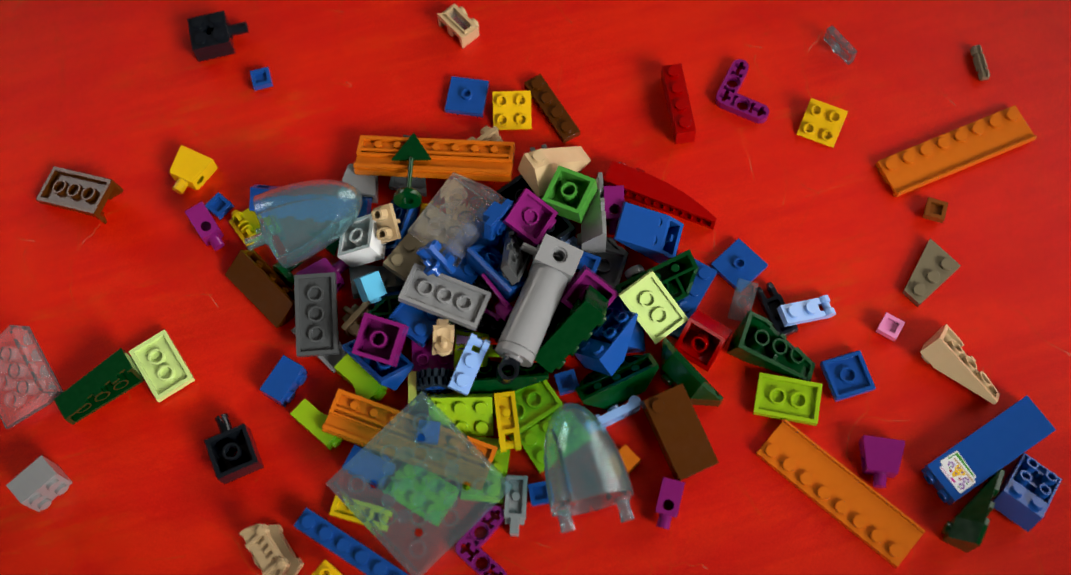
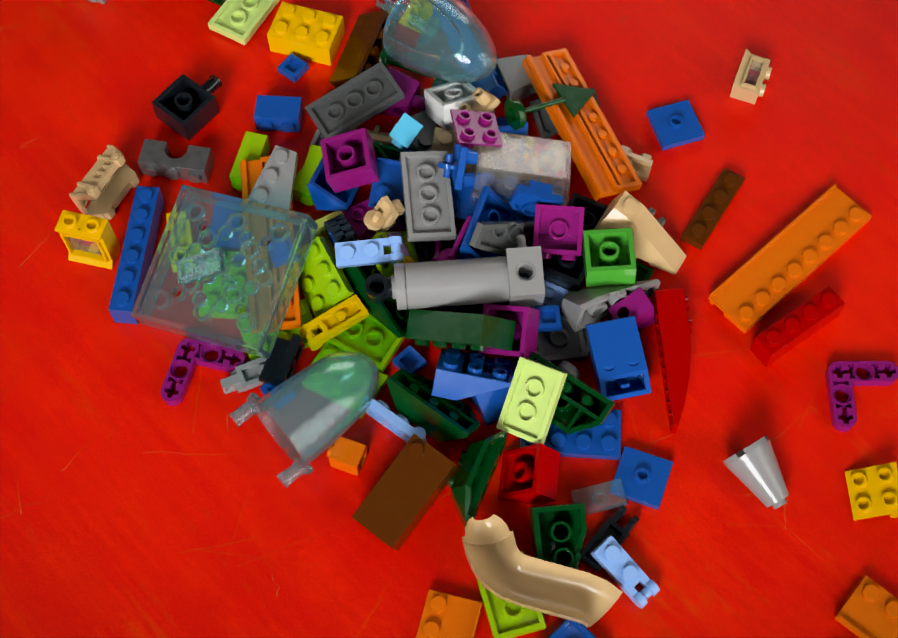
camera: 60 degrees right, 5 degrees down
(218, 324) = (306, 33): none -> yellow brick
(244, 350) = (293, 68): none -> blue plate
(272, 501) = (193, 166): none -> flat silver arch
(363, 409) = (276, 179): none -> light grey wing
(407, 232) = (476, 128): none -> magenta hinge
(413, 500) = (200, 266): none -> clear light blue plate
(512, 110) = (685, 171): yellow hinge -> none
(522, 476) = (282, 360): none -> black panel
(620, 81) = (789, 258): none -> orange plate
(671, 491) = (327, 517): magenta torso -> none
(774, 185) = (760, 472): none -> light grey cone
(788, 378) = (533, 581): none -> tan animal

